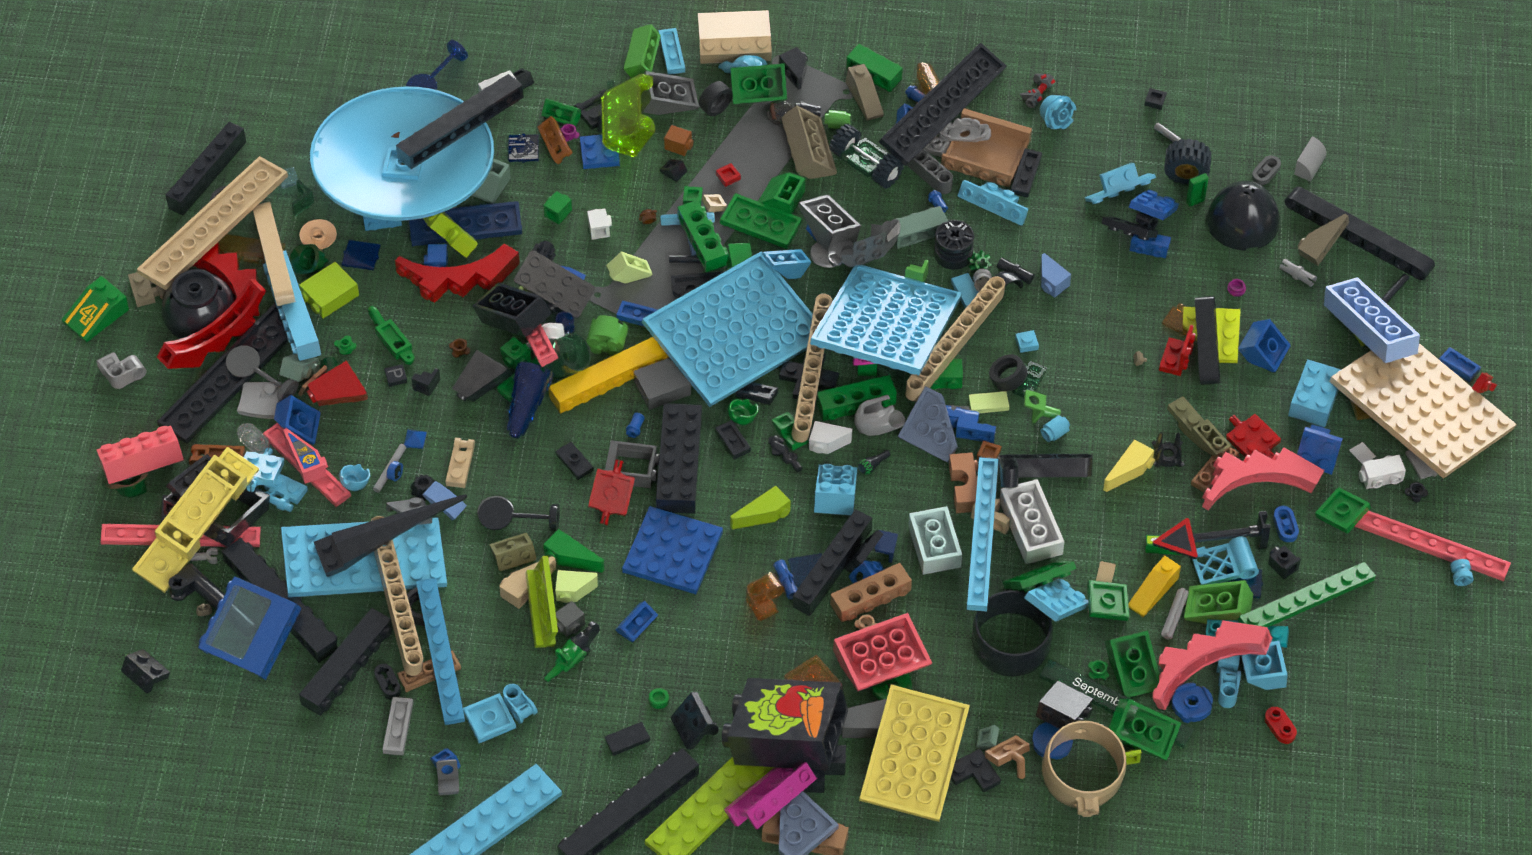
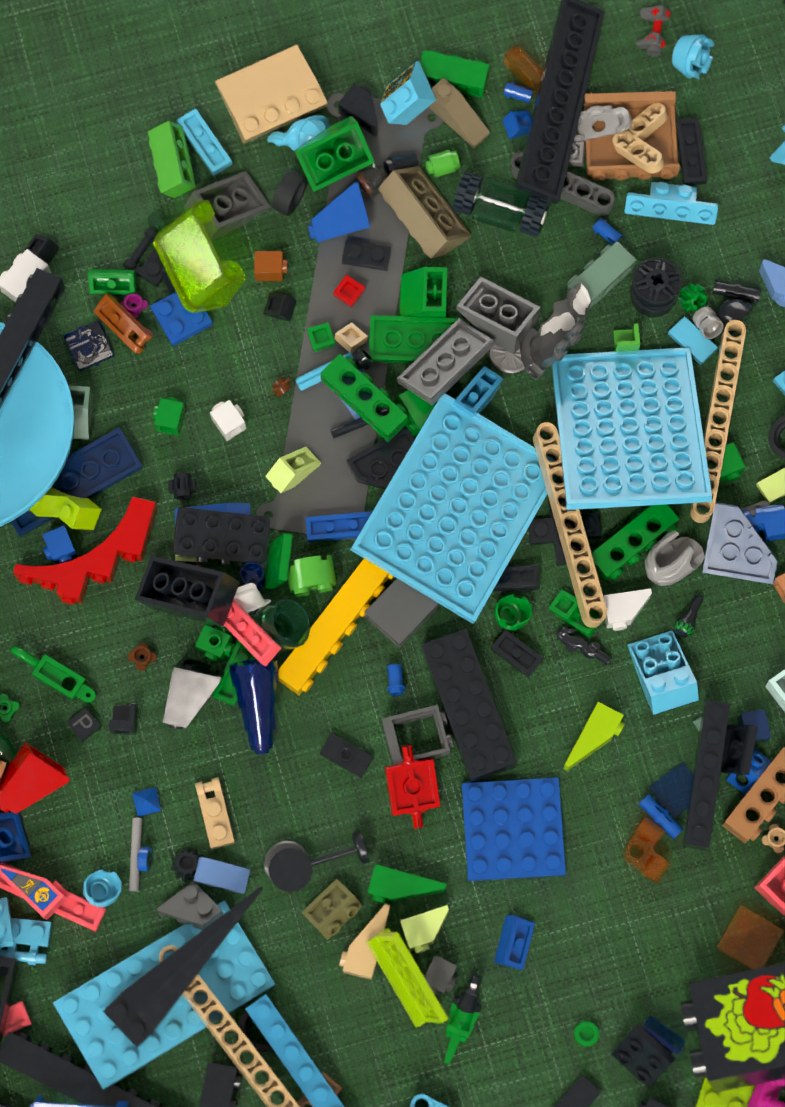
camera: 20 degrees left, 20 degrees up
(589, 316) = (278, 561): none -> green tile
(713, 712) = (664, 1035): none -> piece
(714, 215) = (362, 359): none -> black plate
(744, 125) = (341, 216): none -> blue slope
(752, 158) = (366, 255): none -> black plate
(773, 235) = (445, 361): none -> dark grey tile
(832, 68) = (407, 96): none -> medium azure slope
(985, 150) = (652, 118): none -> tan beam

